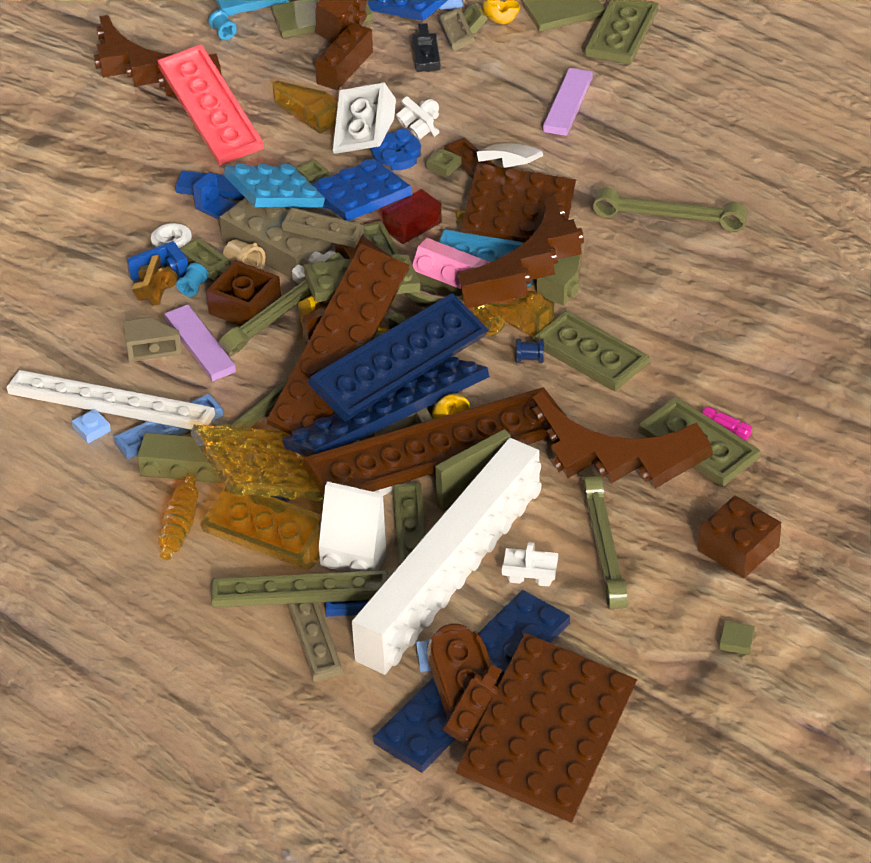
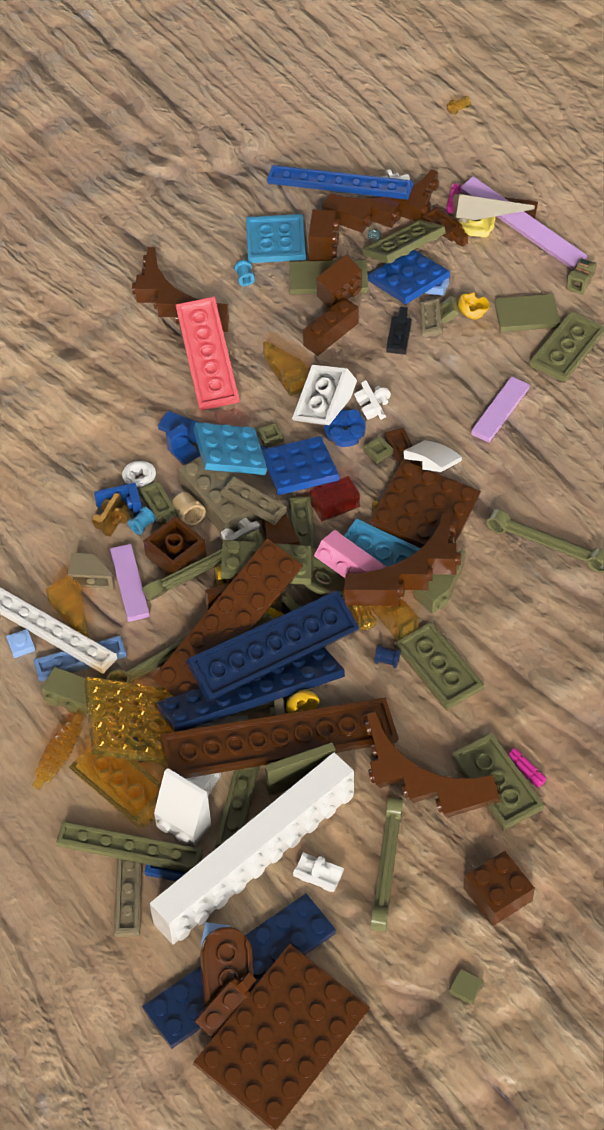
camera: 15 degrees right, 10 degrees up
(136, 373) = (67, 600): none -> clear yellow slope

